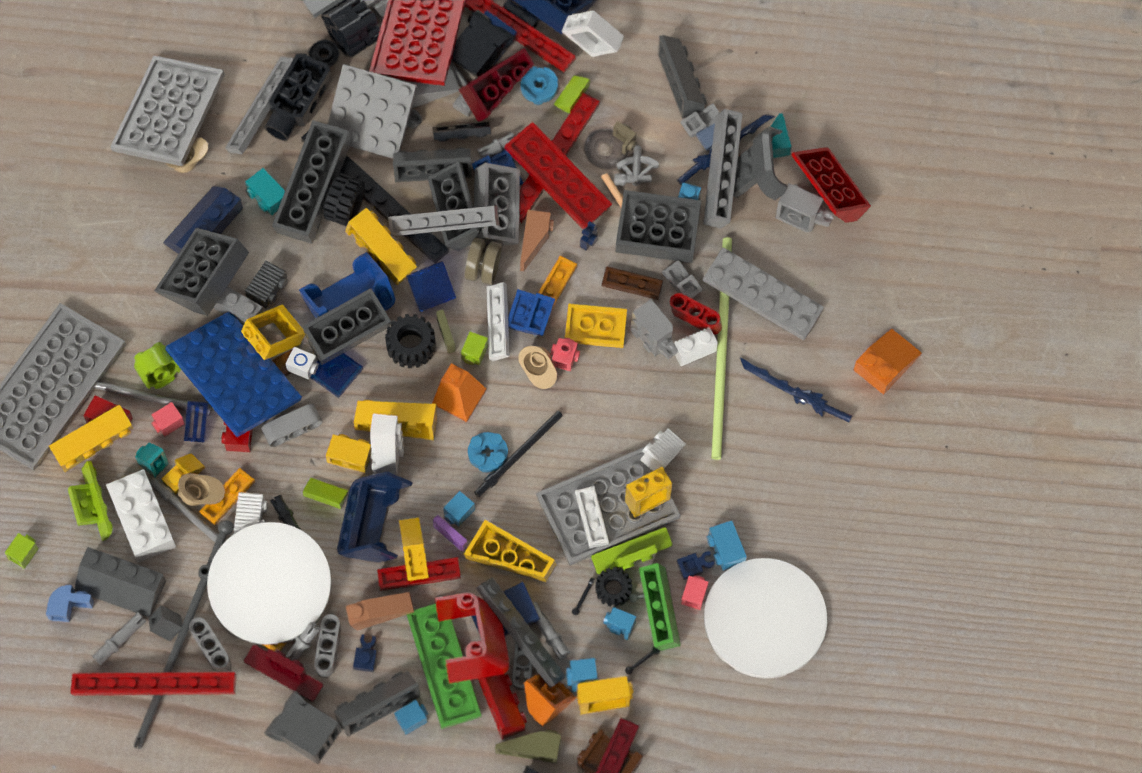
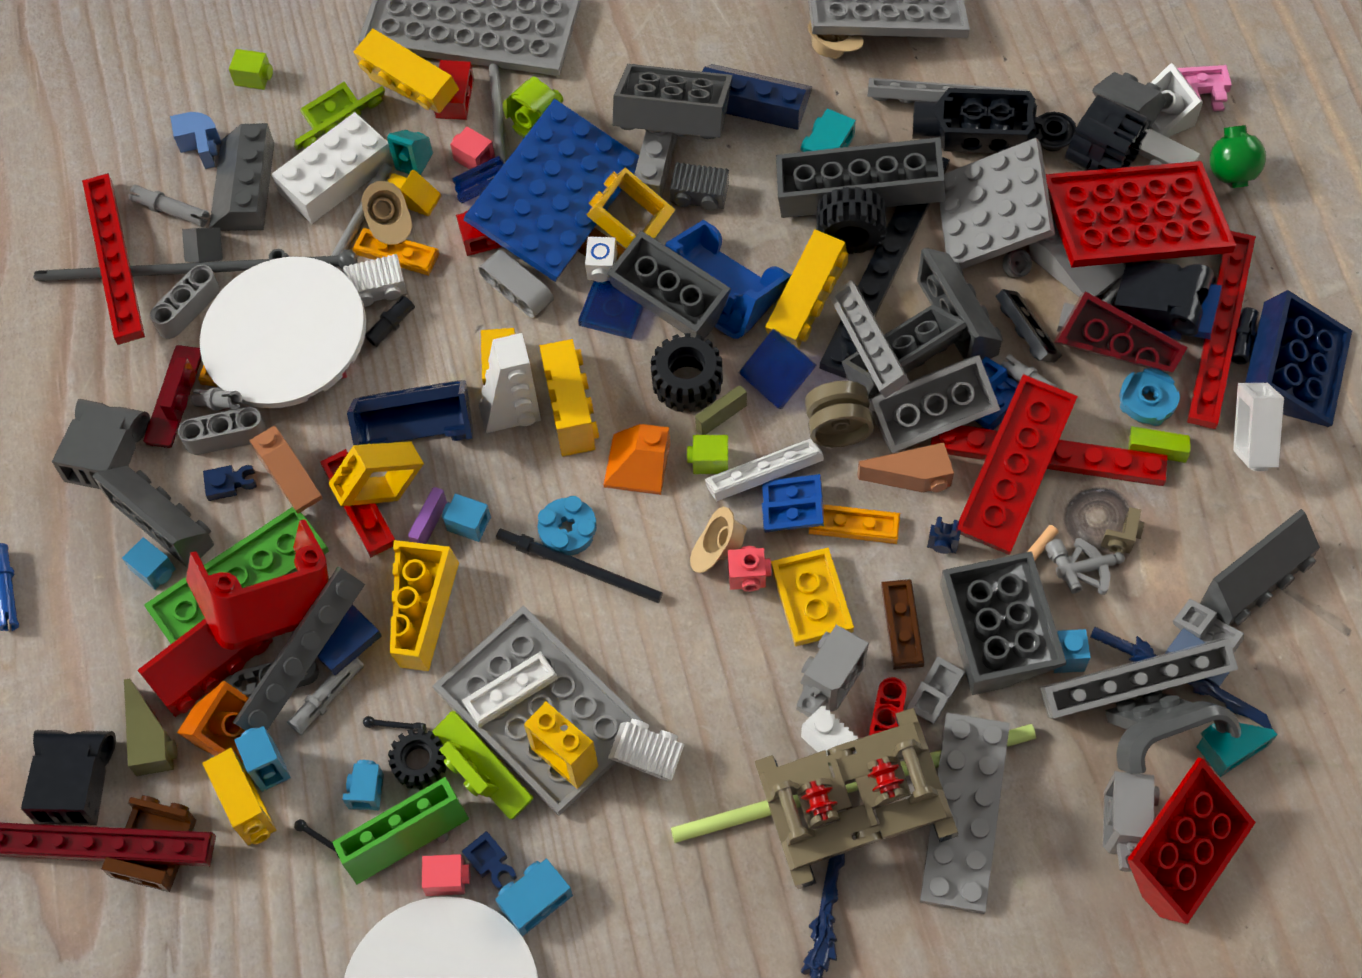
camera: 75 degrees right, 5 degrees down
(325, 493) = (437, 355): lime slope -> none
(754, 358) = (879, 781): none -> dark tan container

